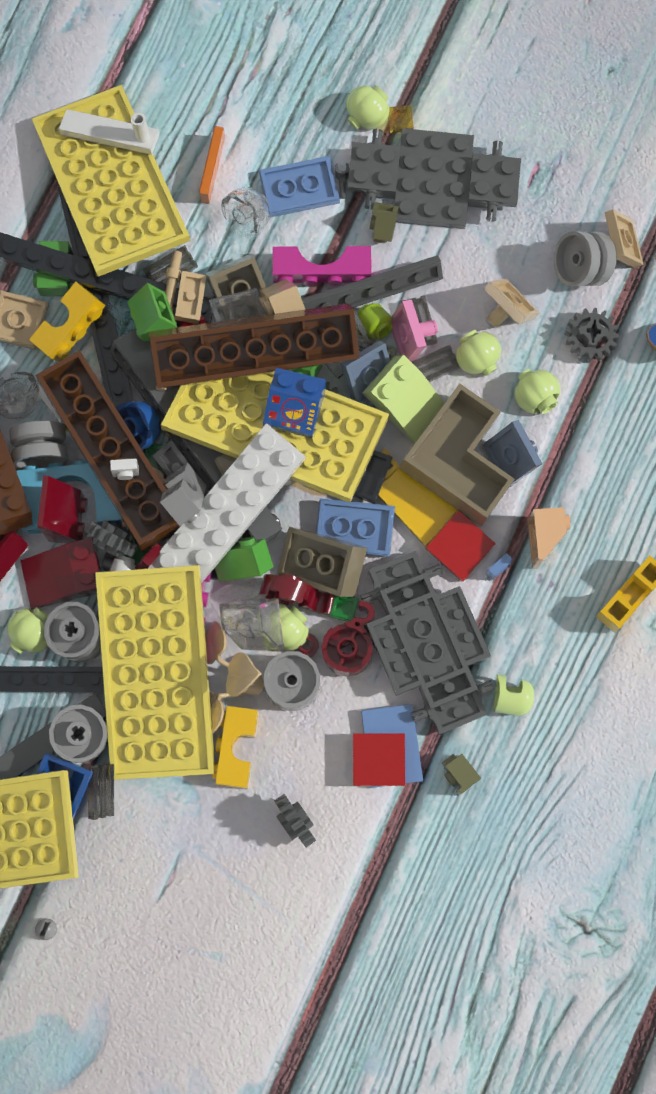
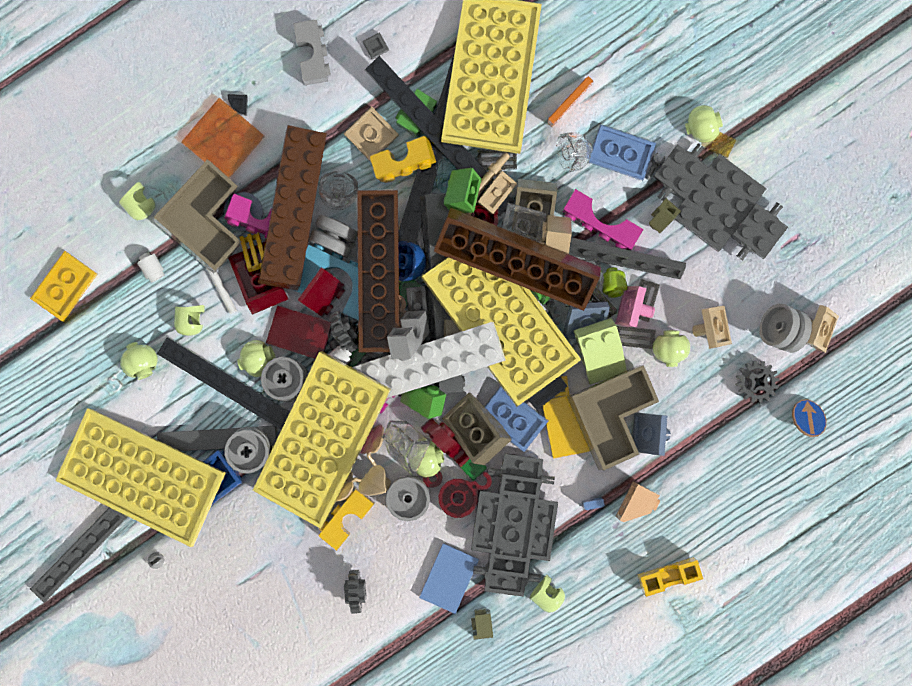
camera: 30 degrees right, 10 degrees up
(104, 776) = (243, 495): clear smoke tile -> none
(107, 131) = (517, 43): white piece -> none
(124, 468) = (378, 295): white plate -> none
(149, 558) = (361, 360): dark red tile -> none
(294, 402) = (520, 315): blue slope -> none
(378, 759) = (434, 583): red tile -> none
(460, 545) = (576, 473): red tile -> none
(537, 390) = (694, 398): yellowish green plant -> none

